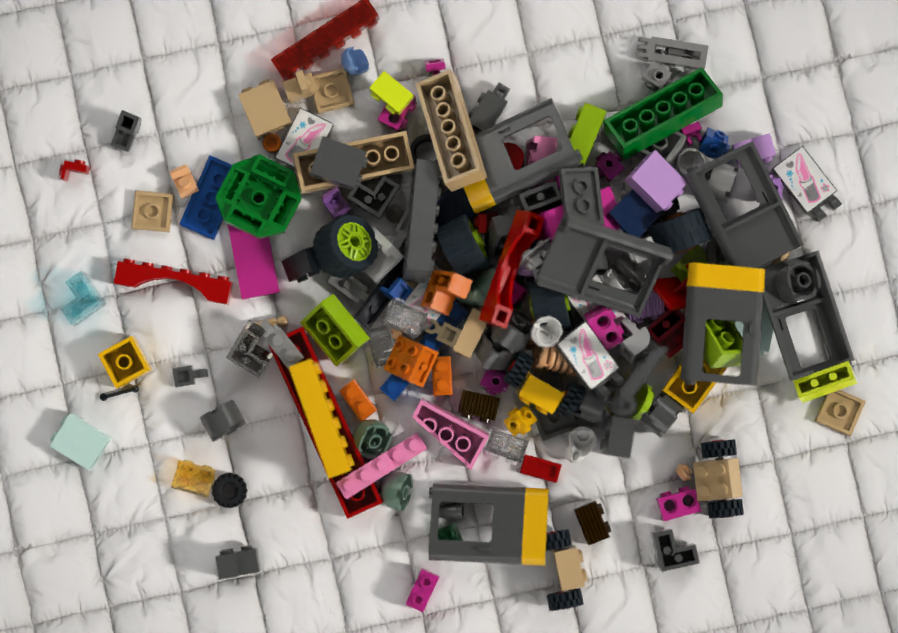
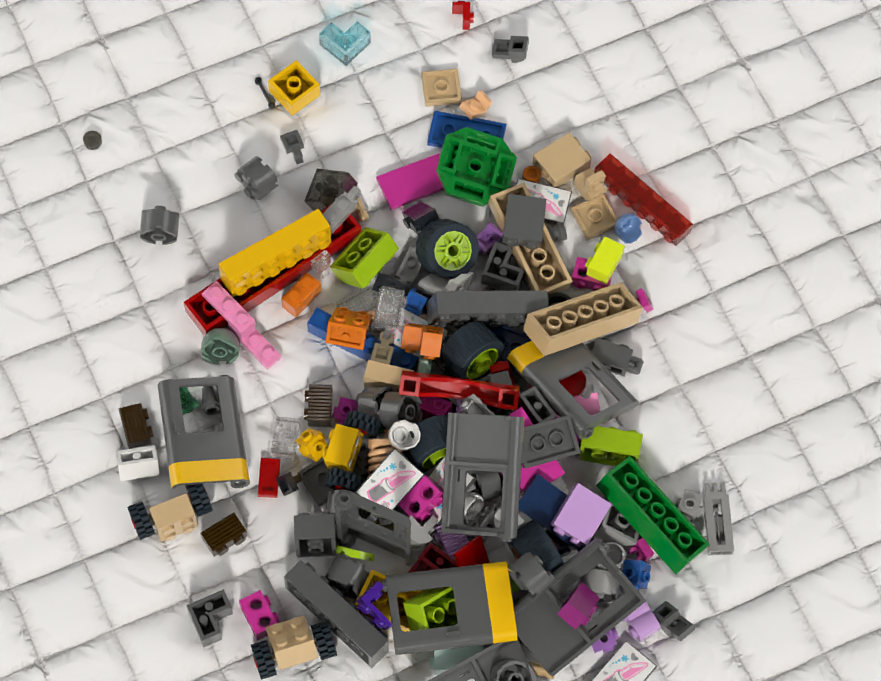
camera: 75 degrees right, 20 degrees down
(80, 441) = (212, 67): light aqua brick -> none
(134, 275) = (379, 147): red arch -> none
(136, 578) = (92, 140): none -> clear smoke tile
(193, 478) = (196, 168): clear yellow bracket -> none
(217, 490) = (188, 191): black tyre -> none
(237, 563) = (121, 214): dark grey brick -> none
(254, 527) = (159, 225): none -> dark grey brick
(332, 373) = (321, 263): none -> clear plate
(343, 133) = (557, 232): none -> dark grey wheel
(371, 438) = (267, 311): sand green cylinder -> none
(422, 590) = (127, 388): dark pink brick -> none
(442, 376) = (341, 365): orange brick -> none
(452, 431) = (288, 384): bright pink wedge -> none
(462, 588) = (135, 425): none -> dark brown brick
(504, 593) = (137, 463): none -> white brick
(553, 450) = (288, 483): none -> black tile
(581, 443) = (300, 503): white hair -> none
(609, 172) = (587, 476): magenta brick -> none
(684, 472) = (292, 612): light nougat plate -> none
(697, 431) = (340, 615): none -> dark grey brick
(698, 398) = (365, 606): none -> dark purple bracket
(714, 243) = (530, 575): none -> dark grey brick
(744, 205) = (579, 606): none -> magenta brick
(766, 120) = (672, 622): none -> dark grey brick

